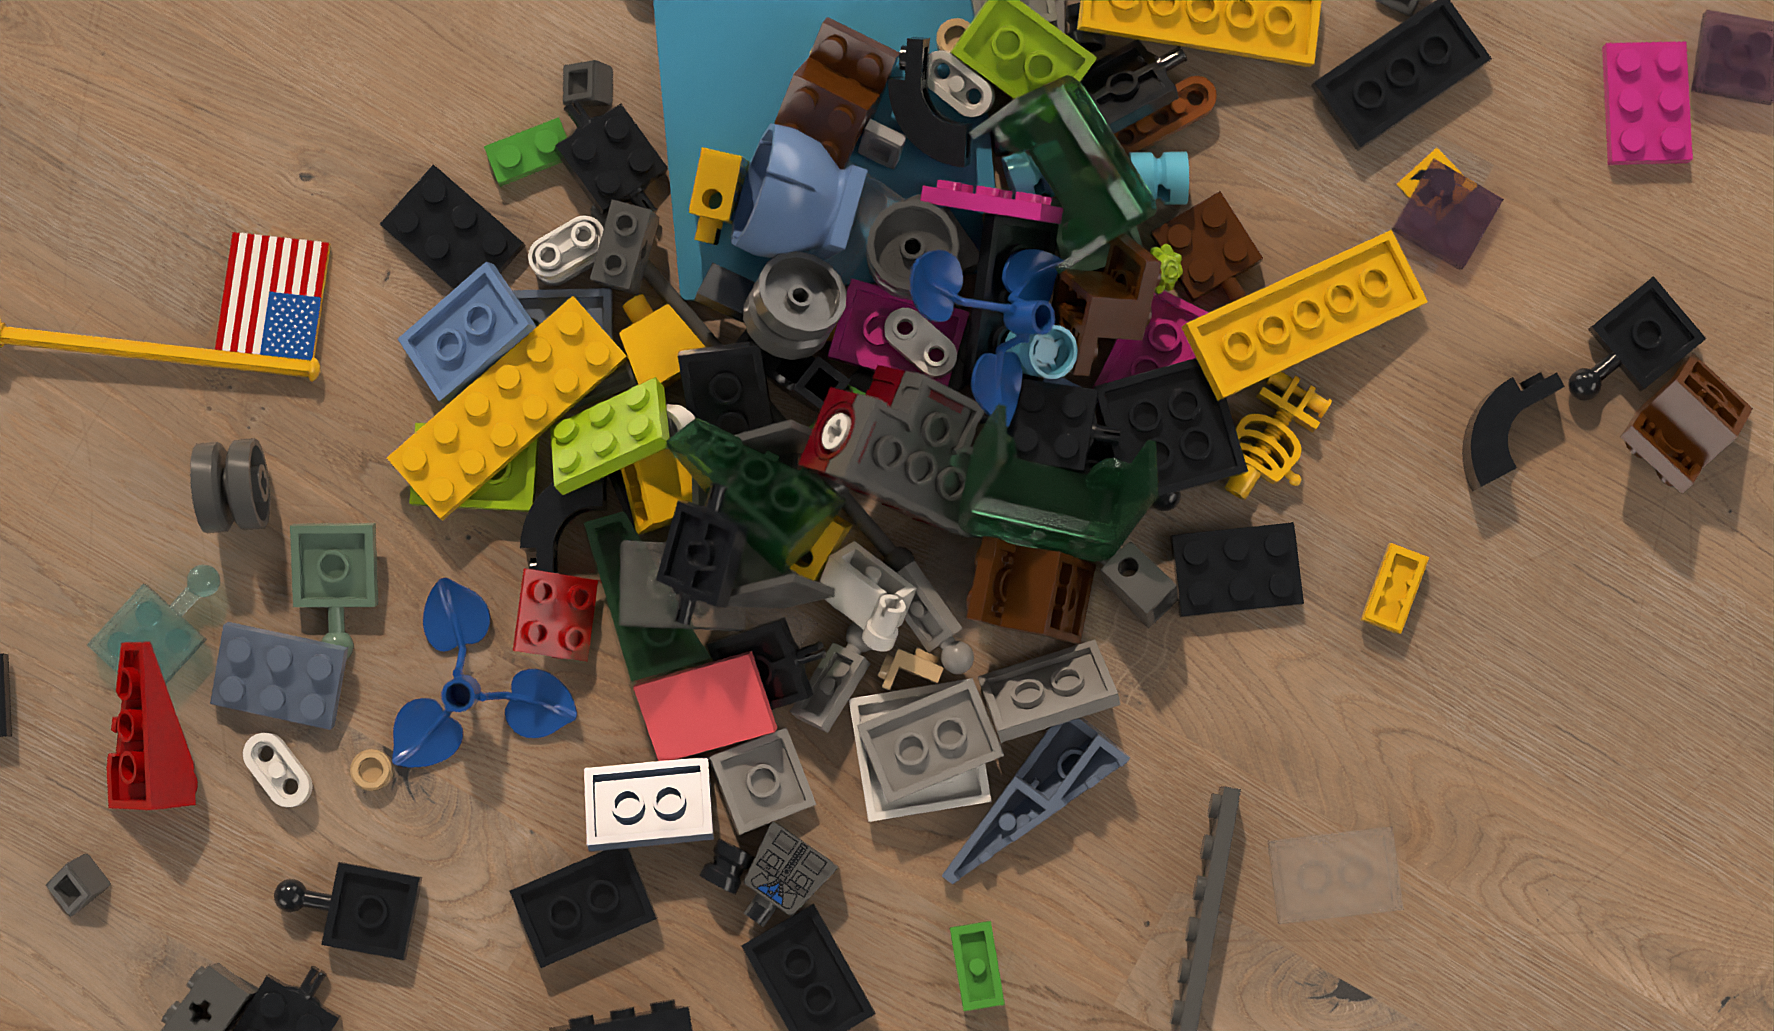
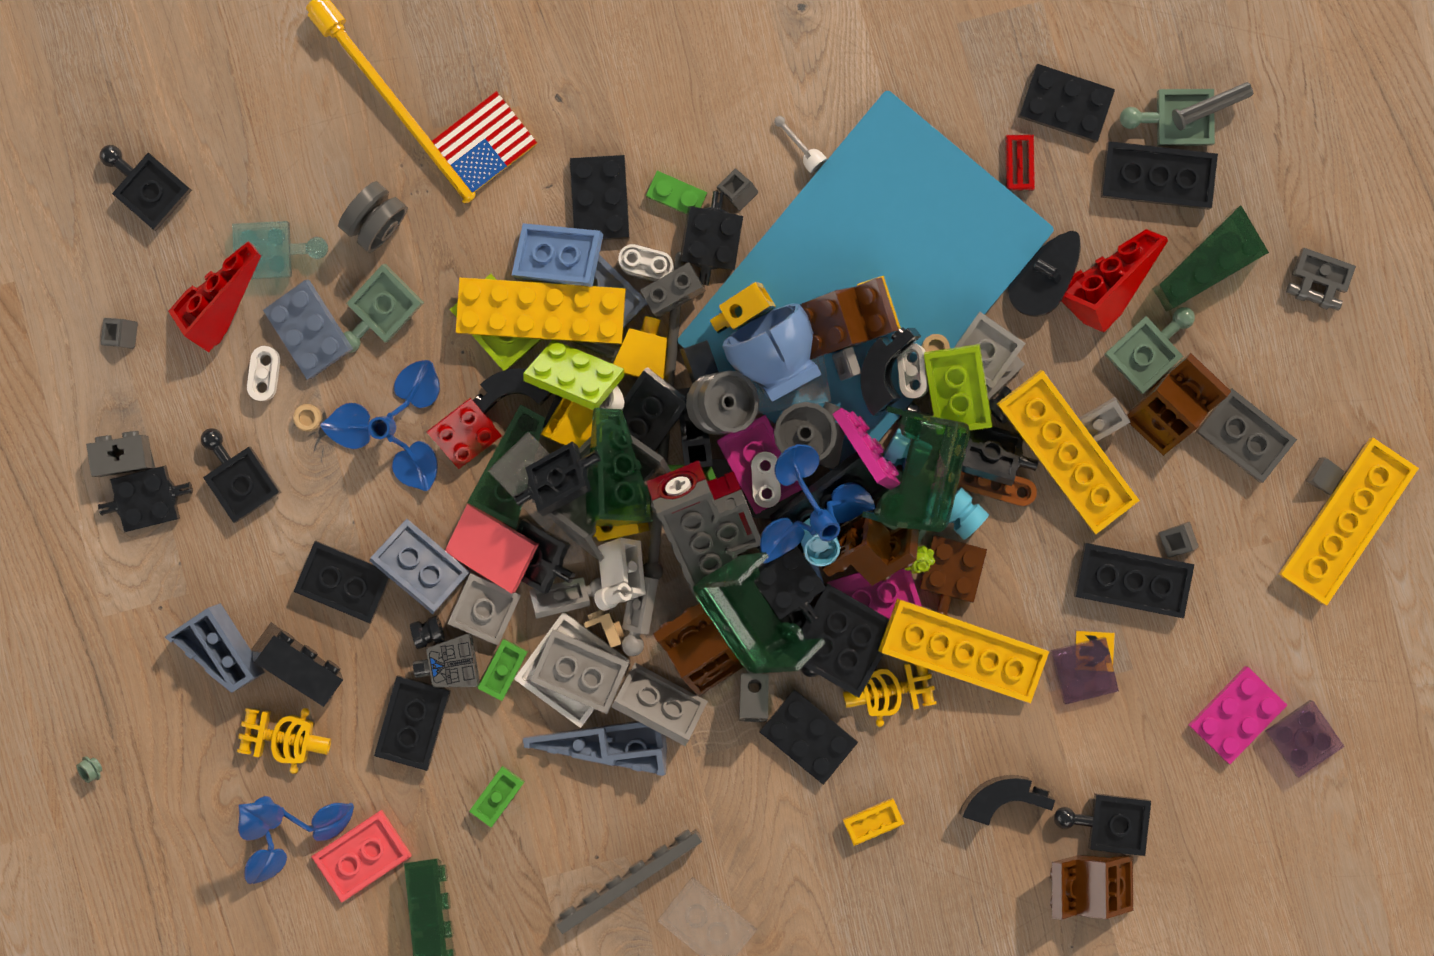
camera: 45 degrees right, 5 degrees up
(847, 824) = (502, 669): none -> bright green plate

